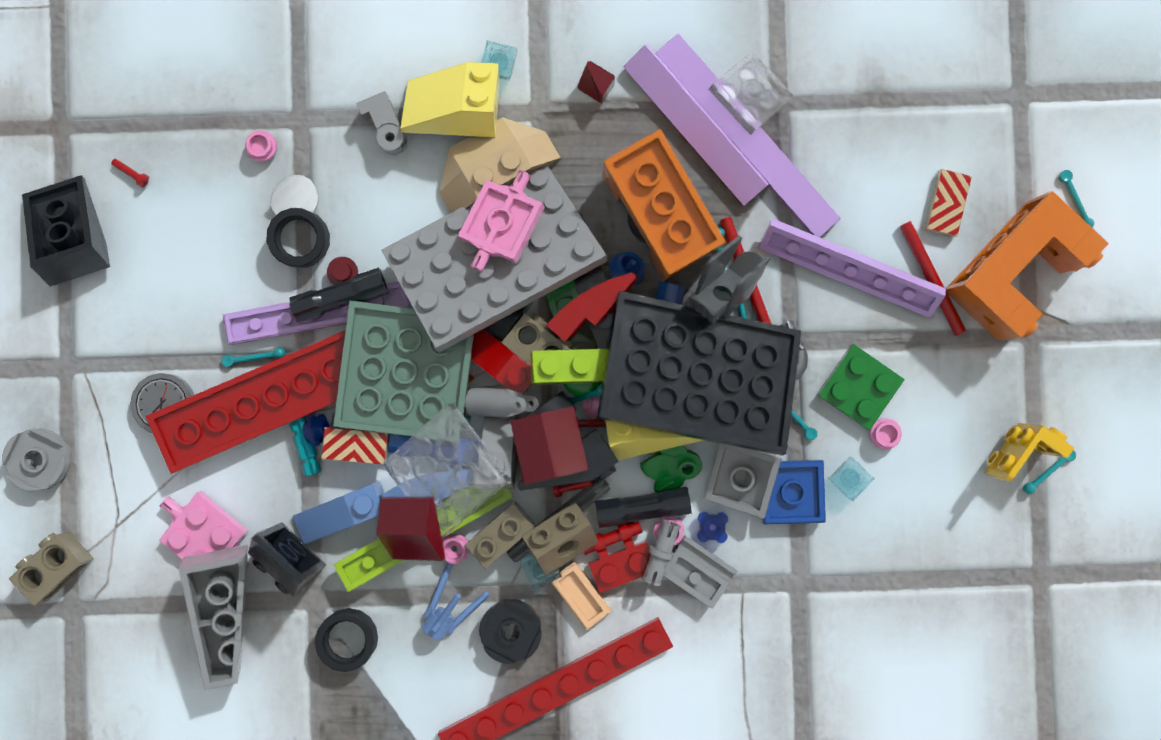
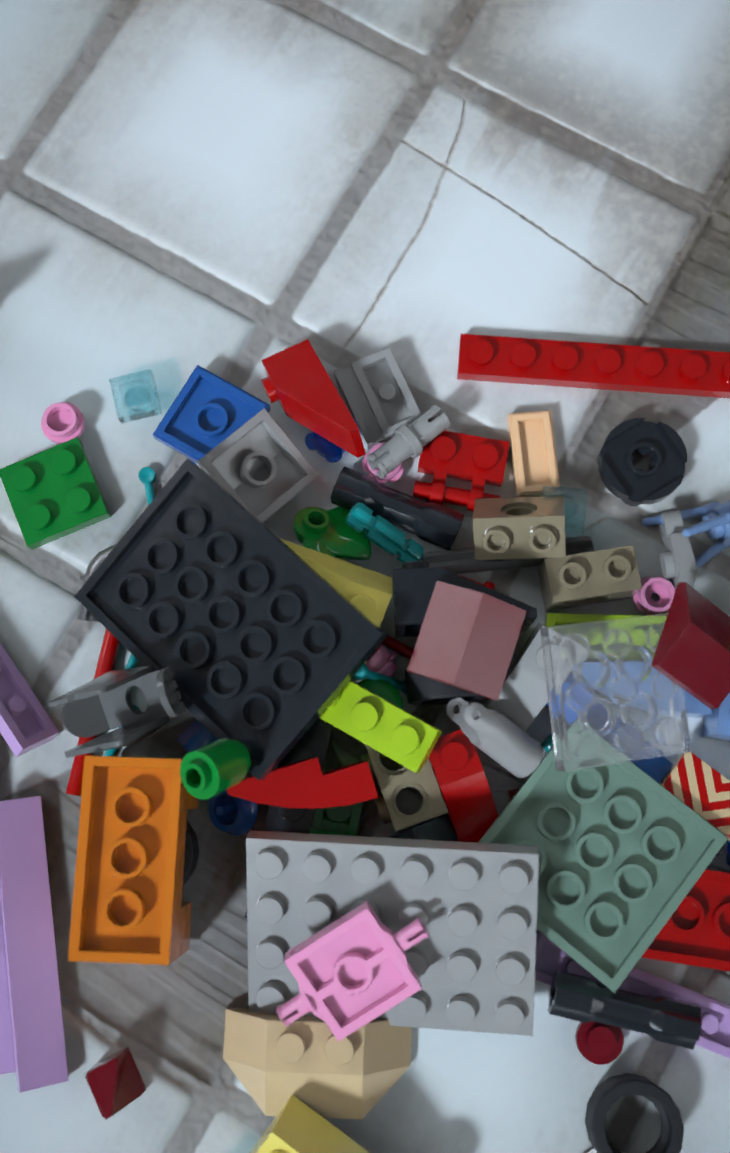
camera: 145 degrees left, 10 degrees down
(453, 578) = (678, 560): none -> light grey plate
(639, 485) = (384, 534): none -> teal axle
(647, 281) = (214, 768): none -> green brick
(741, 543) = (310, 397): none -> red slope

